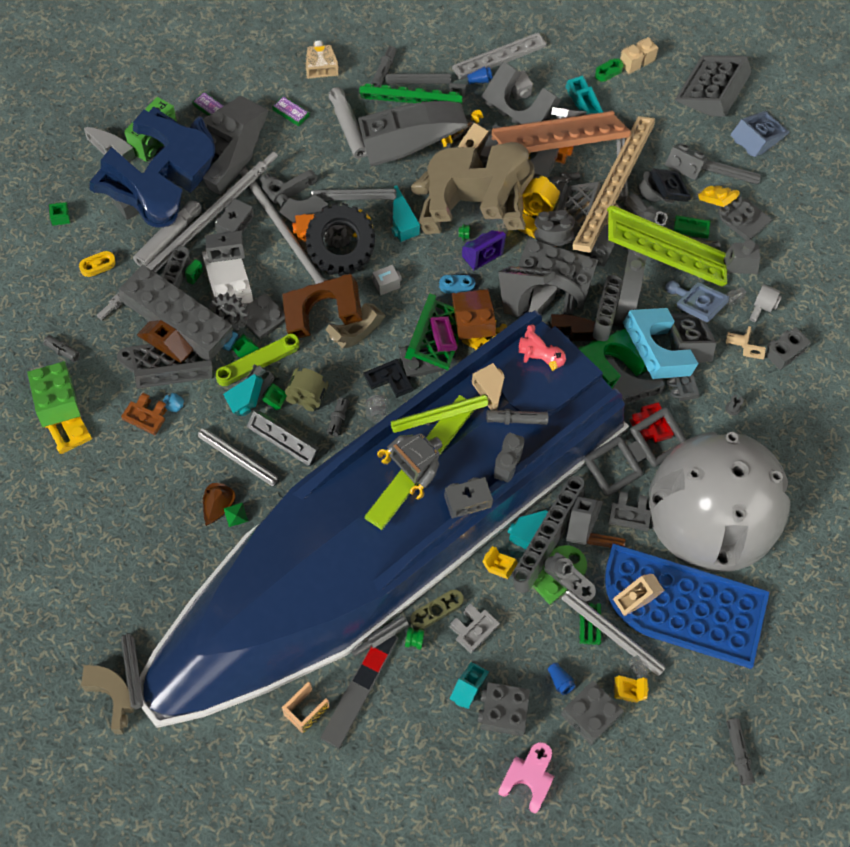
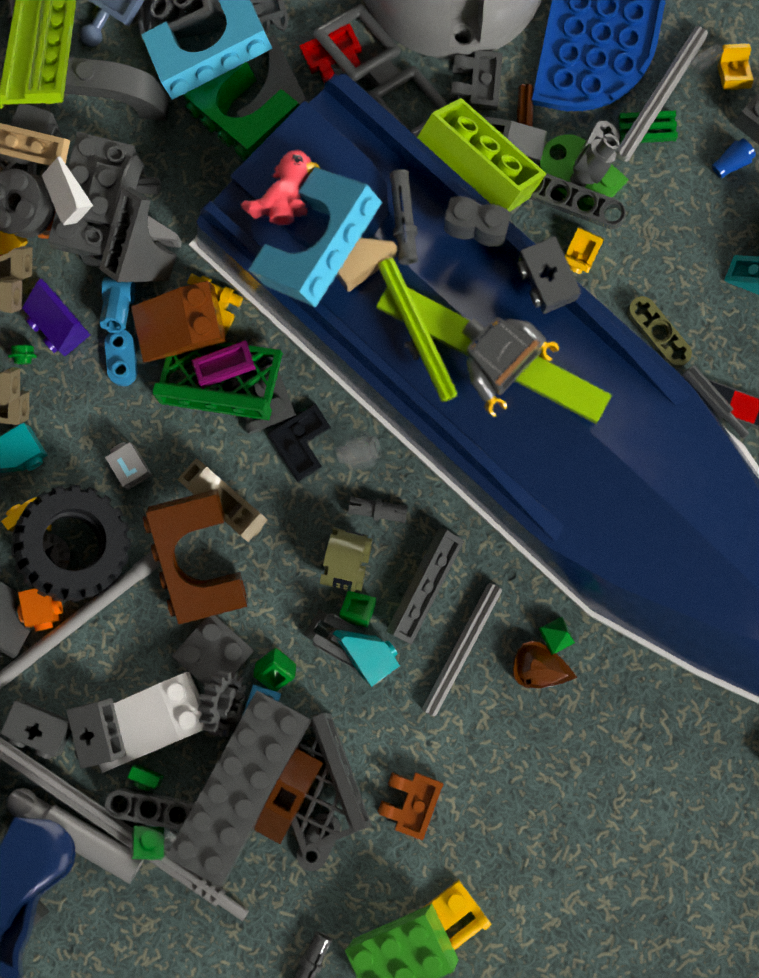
camera: 90 degrees left, 20 degrees up
(97, 264) = (142, 942): yellow plate -> none
(155, 264) = (148, 842): none -> green plate
(173, 402) = (381, 765): dark azure piece -> none
(261, 357) = (295, 646): lime piece -> none
(414, 638) = (708, 355): green wheel -> none
(477, 631) = (684, 274): light grey plate -> none
(487, 281) = (116, 302): none -> dark azure piece
(521, 376) = (312, 271): none -> medium azure arch
(525, 528) = (532, 218): teal slope -> none
(553, 246) = (66, 193): none -> white slope
(564, 488) = (481, 155): none -> lime brick
(576, 327) = (184, 170): reddish brown slope -> none
(607, 308) = (154, 119): dark grey beam -> none
(638, 594) = (610, 57): tan slope -> none

